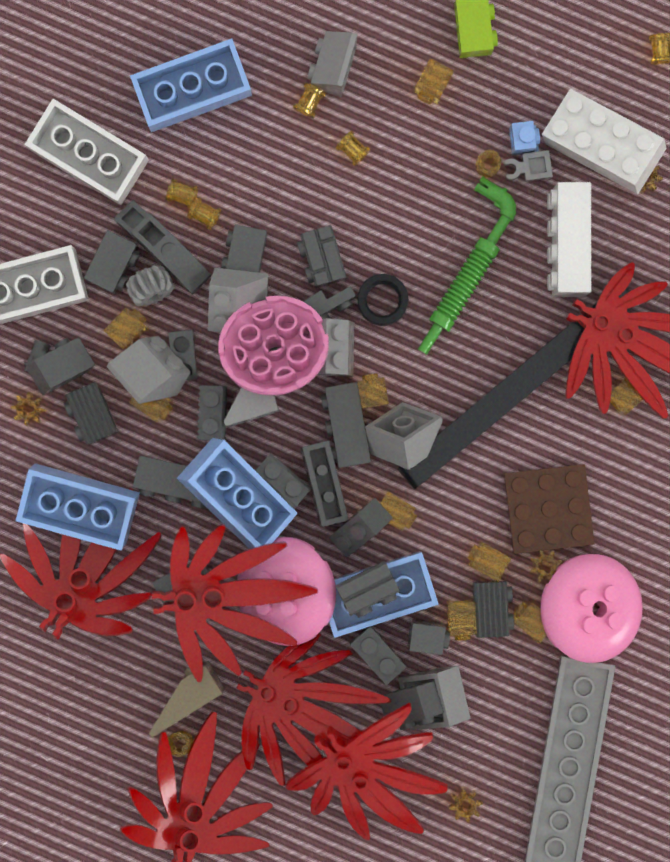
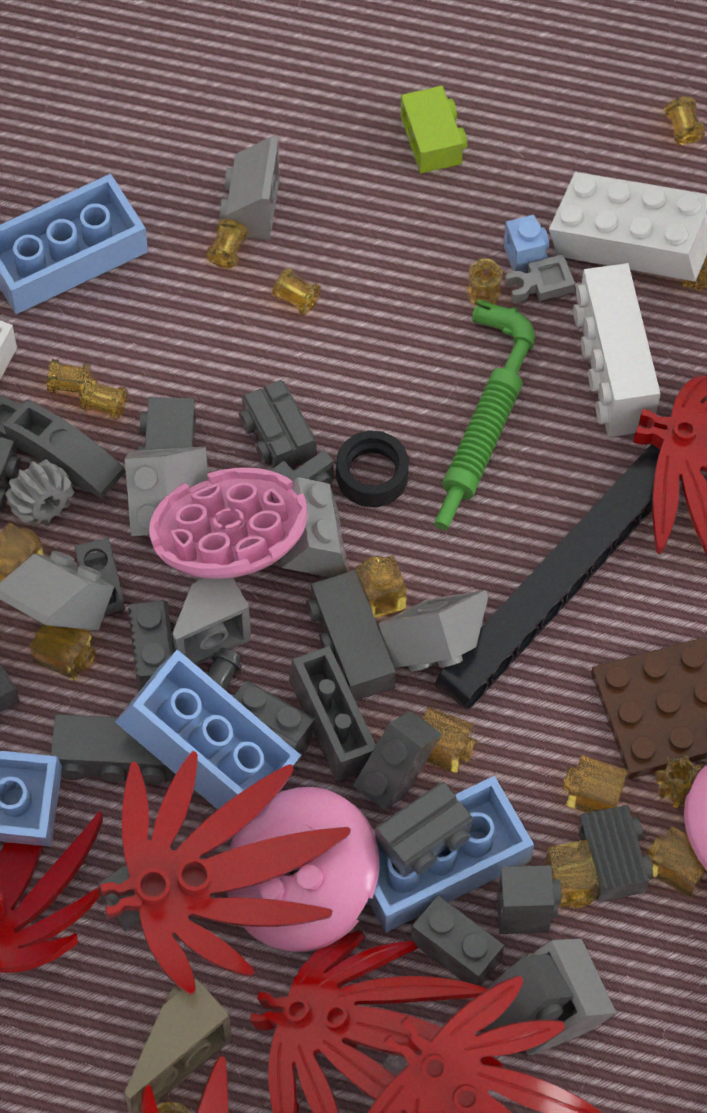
camera: 10 degrees left, 25 degrees down
(255, 437) = (224, 666): none -> dark grey pin
(433, 82) = (390, 198): clear yellow brick -> none

